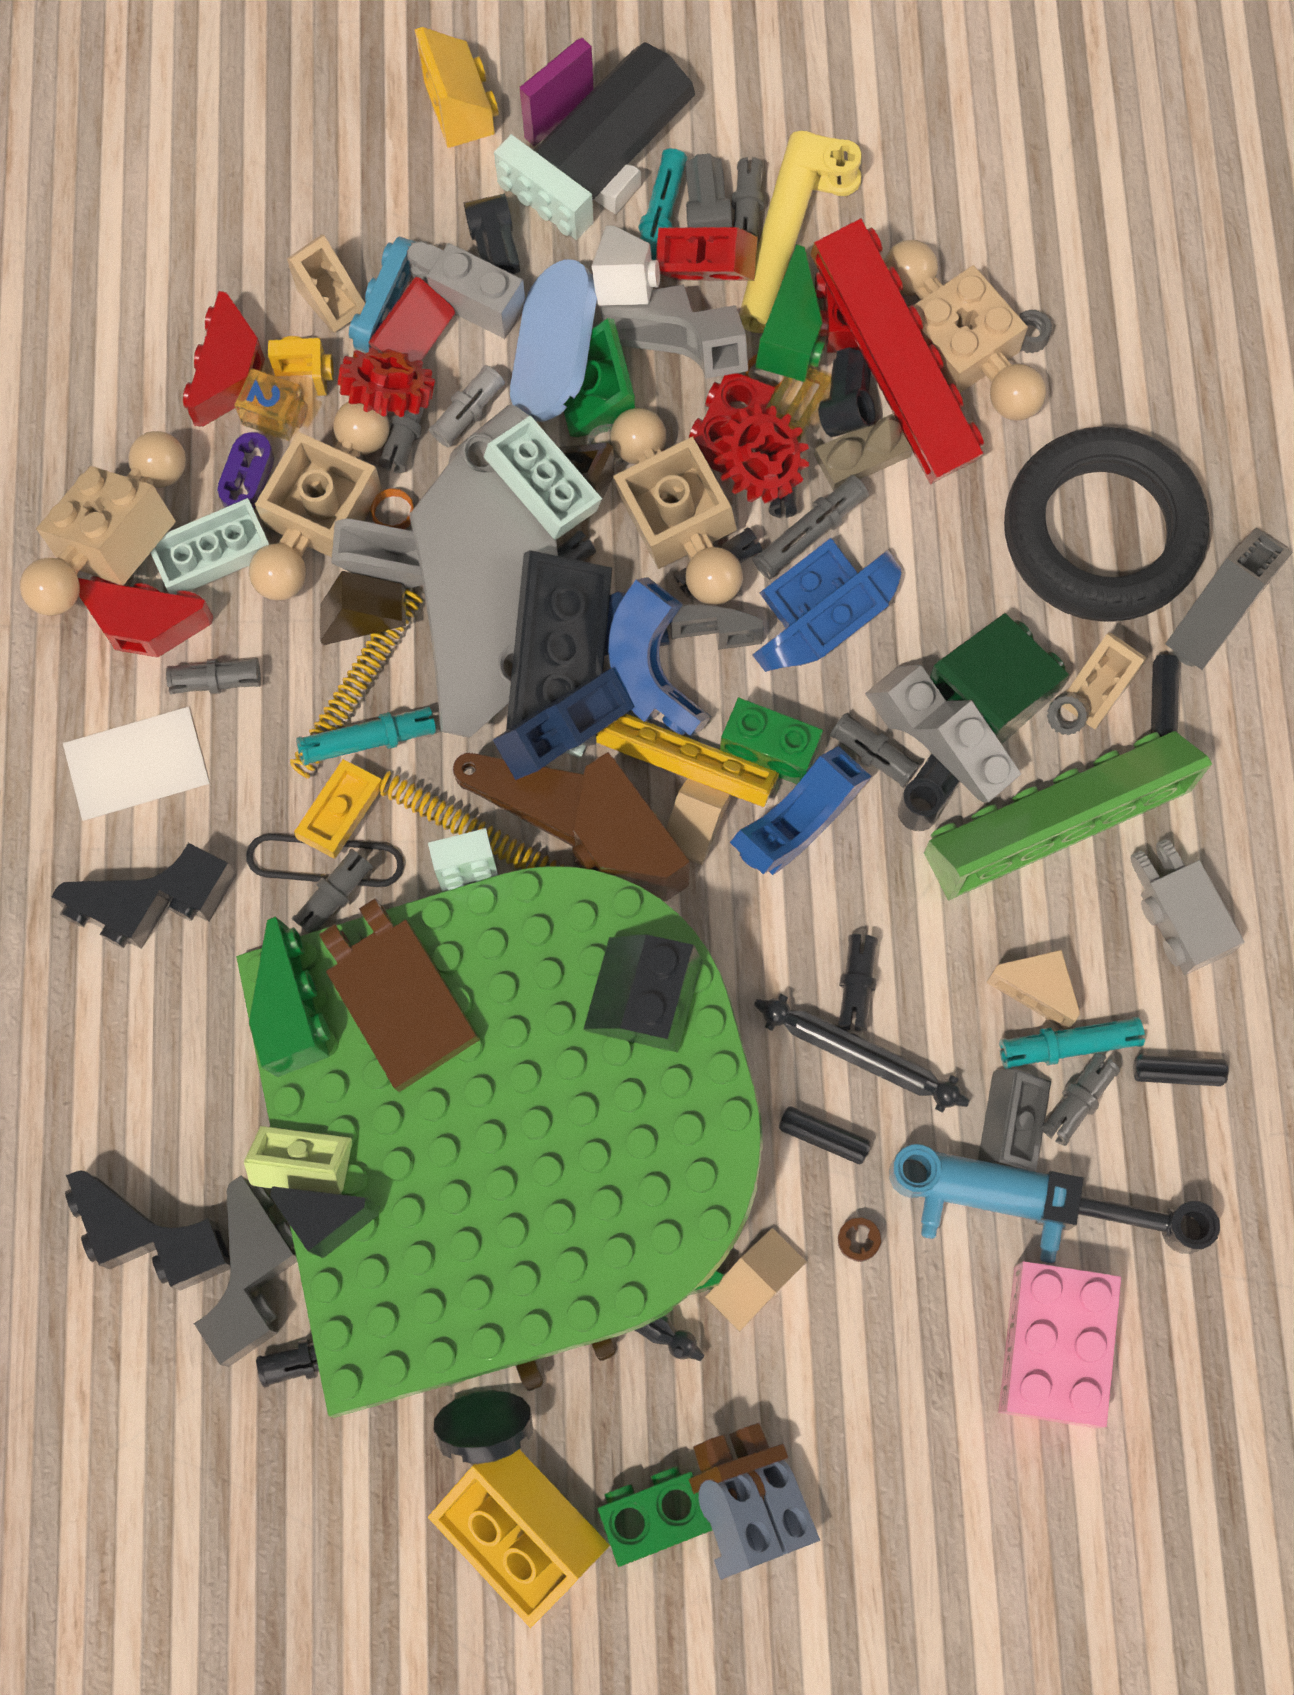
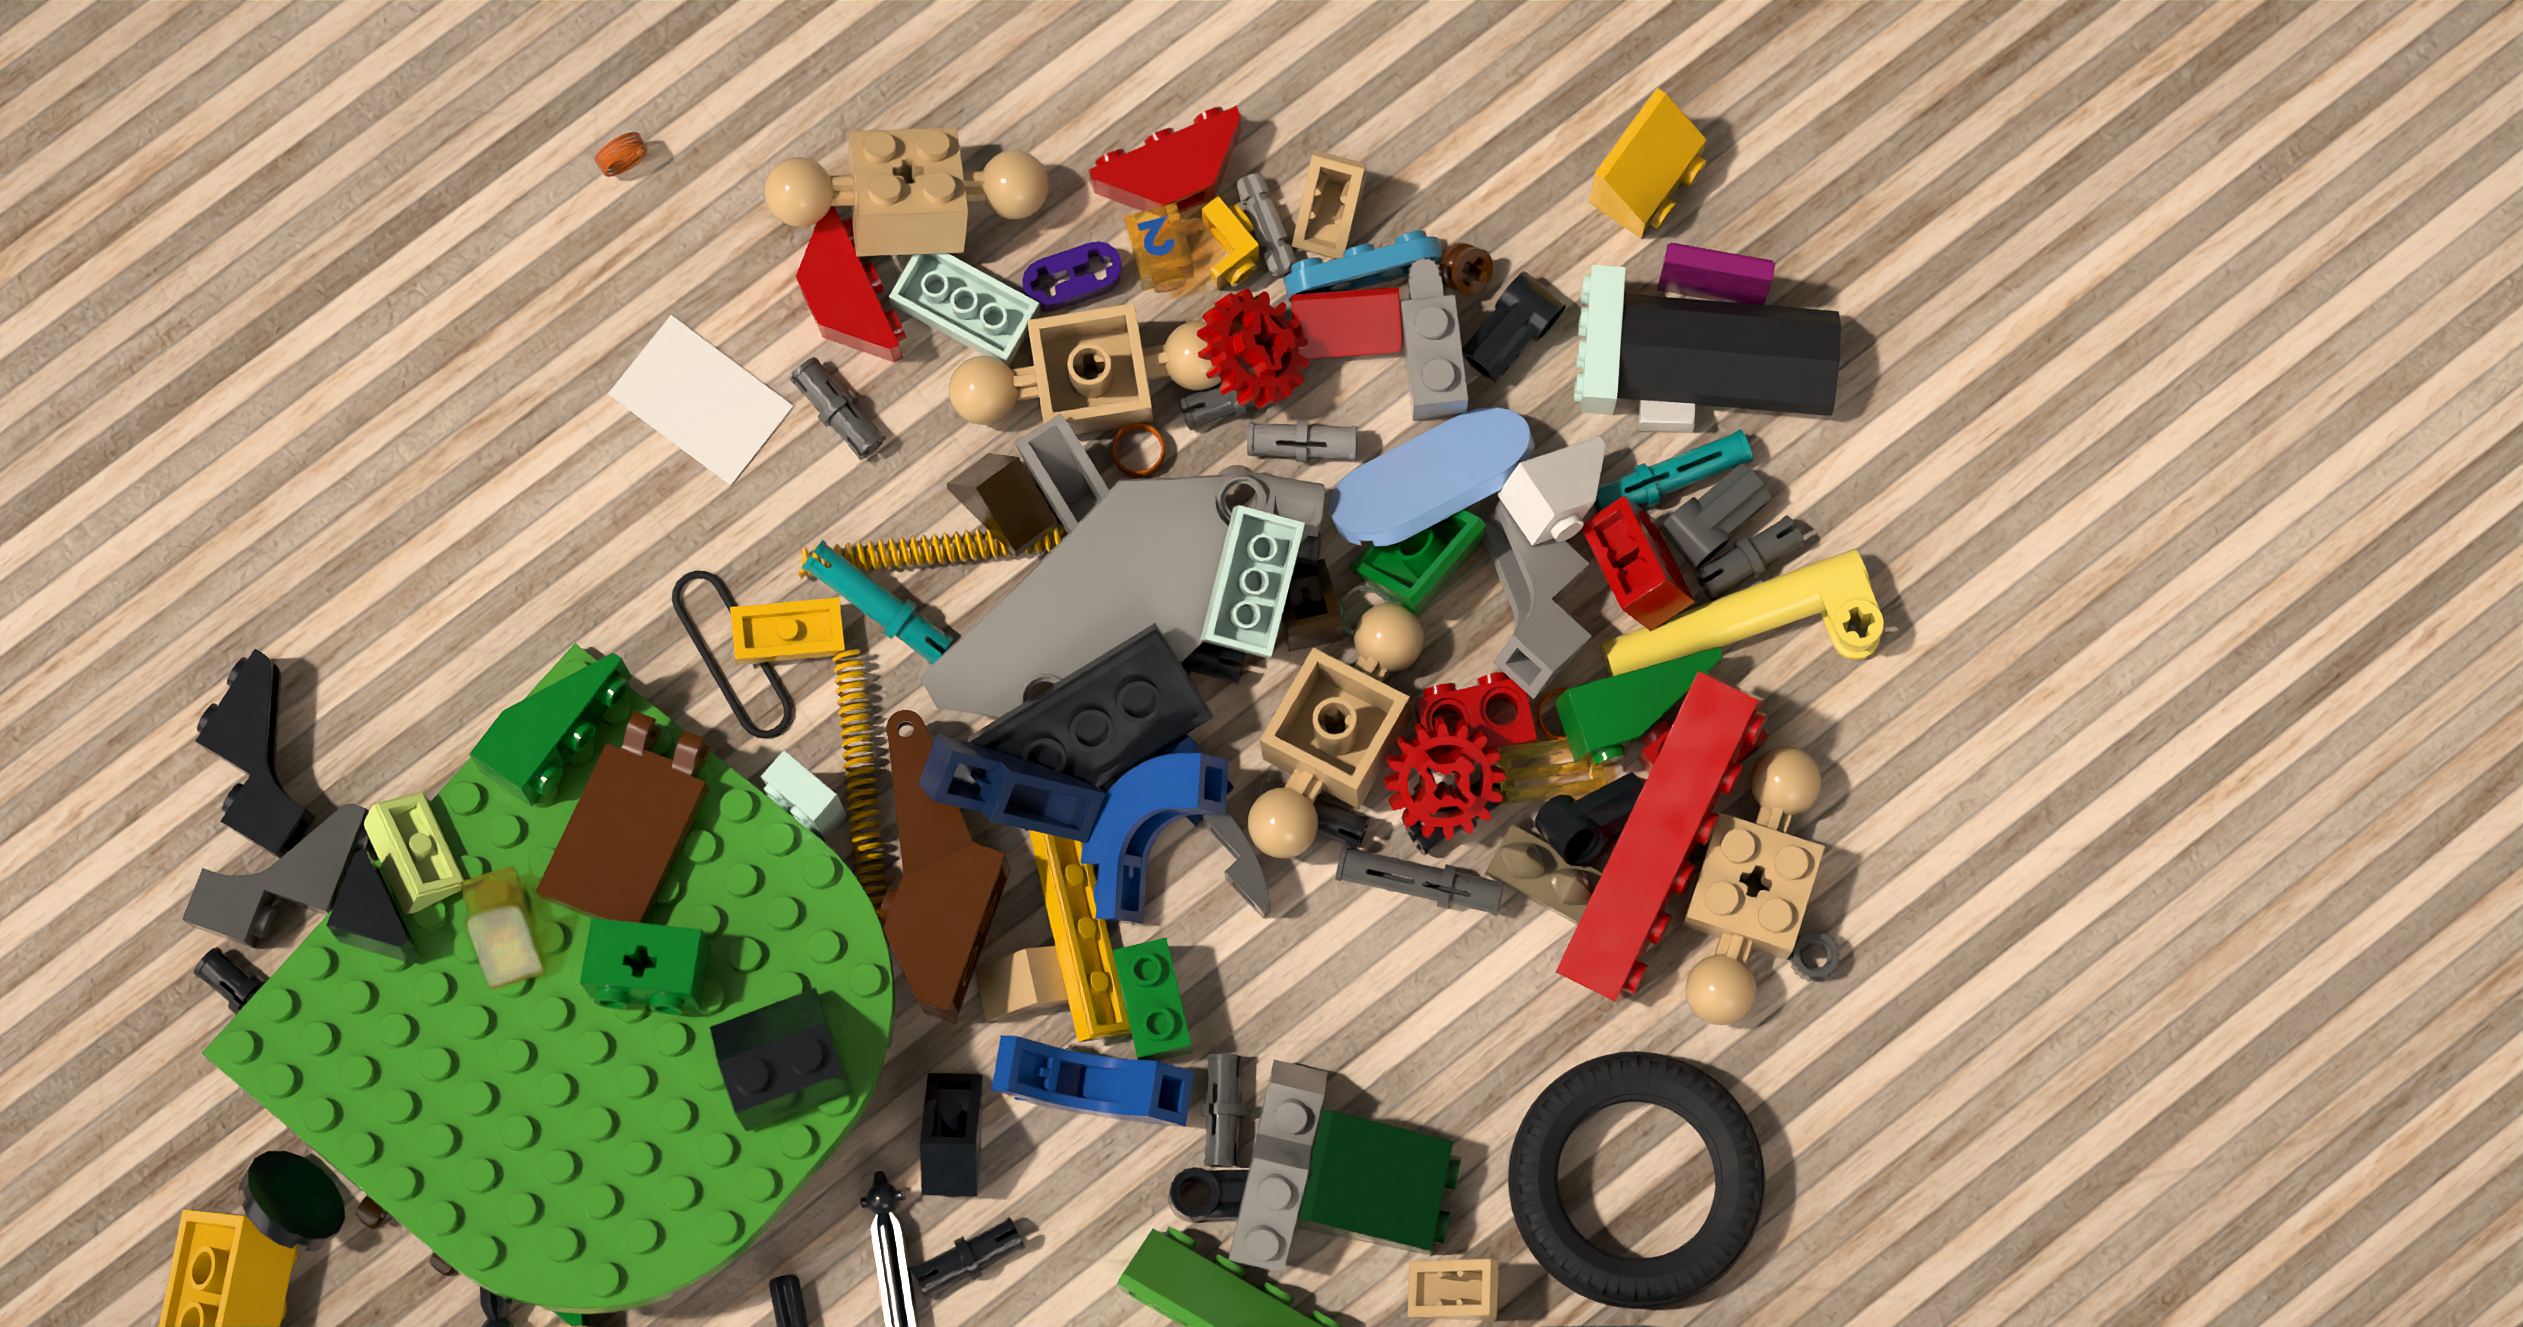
camera: 55 degrees right, 5 degrees up
(132, 907) = (548, 512): black arch -> none
(332, 892) = (700, 687): dark grey pin -> none
(335, 341) = (1266, 223): none -> light grey axle
(402, 1130) = (501, 927): none -> clear yellow slope
(434, 231) = (1478, 274): none -> reddish brown bush
(514, 1018) = (621, 947): none -> green brick
(767, 934) = (951, 1135): none -> black slope
(824, 604) = (1345, 954): blue plate -> none
(1058, 723) = (1414, 1278): dark grey axle -> none

